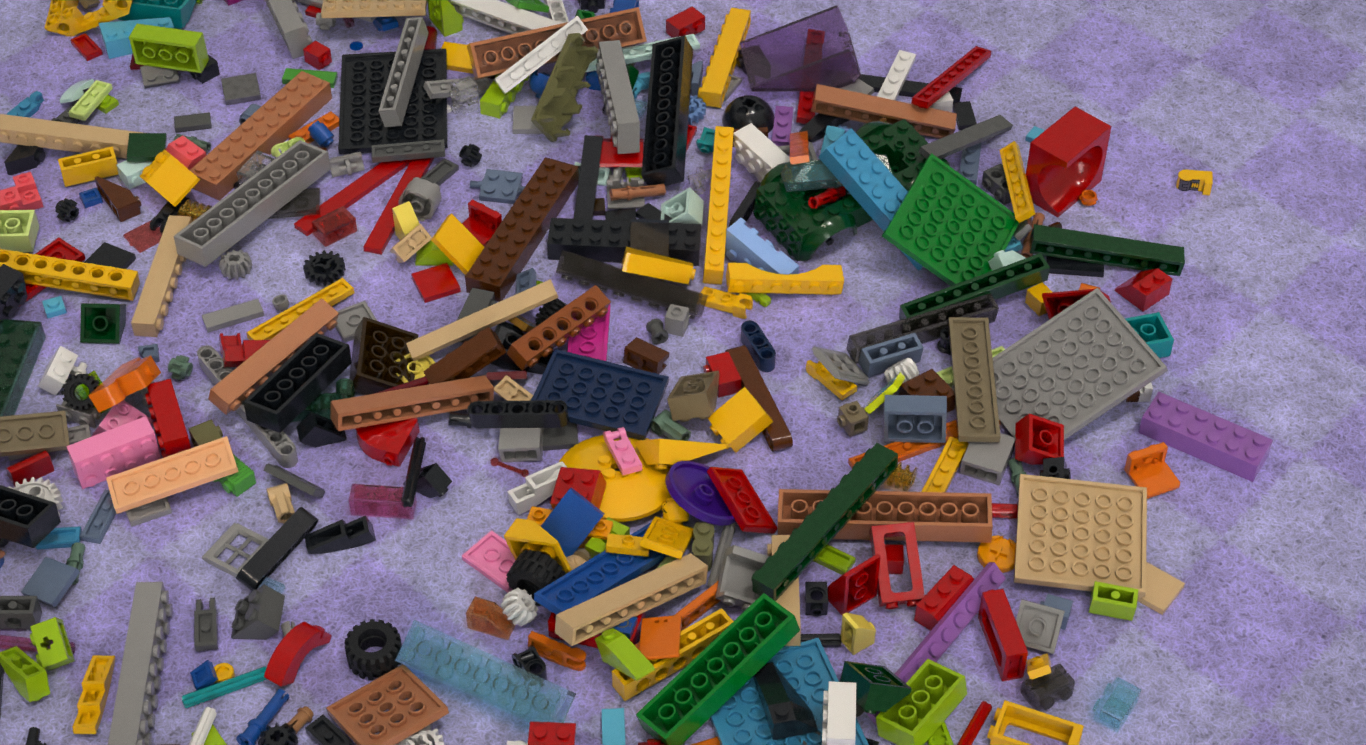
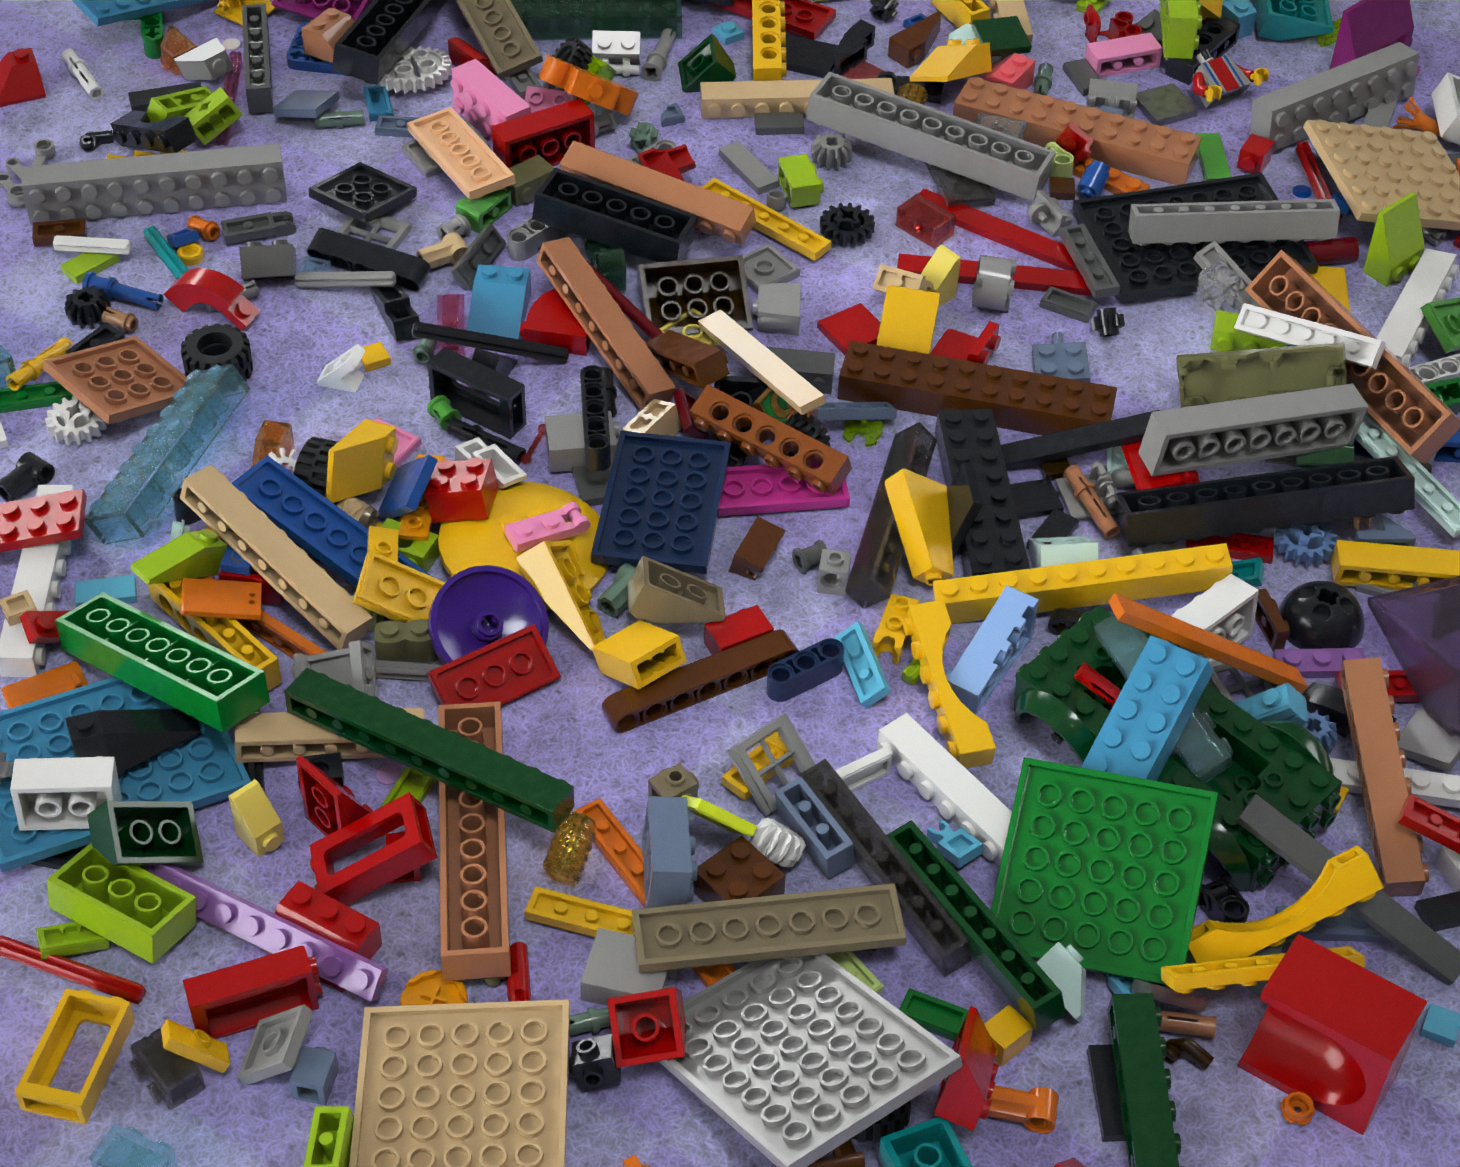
camera: 80 degrees right, 0 degrees up
(86, 354) = (657, 60): none -> light grey pin
(86, 666) = (166, 135): none -> black arch
(111, 234) = (854, 46): none -> black slope
(145, 97) = (1119, 26): none -> red piece
(179, 94) = (1124, 54): none -> bright pink brick
(185, 291) = (779, 123): none -> dark grey tile
(190, 547) = (362, 192): none -> black plate
(193, 661) = (208, 229): none -> orange pin
(227, 110) = (1113, 94): none -> light grey hinge
(235, 51) = (1223, 79): none -> torso
(254, 494) = (453, 226): none -> light grey bush
(266, 284) = (799, 180): none -> lime brick
(283, 132) = (1075, 142): none -> red bracket
(298, 563) = (345, 279): none -> light grey axle
(350, 466) = (499, 300): none -> dark azure slope
(358, 35) = (1313, 171): none -> red axle
(388, 556) = (375, 357): none -> yellow tile
(395, 522) = (424, 350): none -> sand green pin
(406, 570) = (344, 371): none -> white slope
(407, 313) = (778, 308): none -> light grey torso
(463, 486) = (501, 417): none -> black piece
(469, 513) = (442, 410): none -> bright green bush
(488, 505) = (468, 432): none -> black pin
(563, 679) = (178, 529): none -> light aqua plate
(764, 318) = (863, 665): none -> medium azure plate
(812, 569) = (388, 774): none -> lavender piece
(842, 326) = (866, 769): none -> white tile
(863, 293) = (947, 784): none -> white brick
(902, 296) = (955, 846): none -> medium azure plate
(976, 136) = (1341, 883): none -> yellow arch
(1021, 327) = (933, 1014): none -> green tile

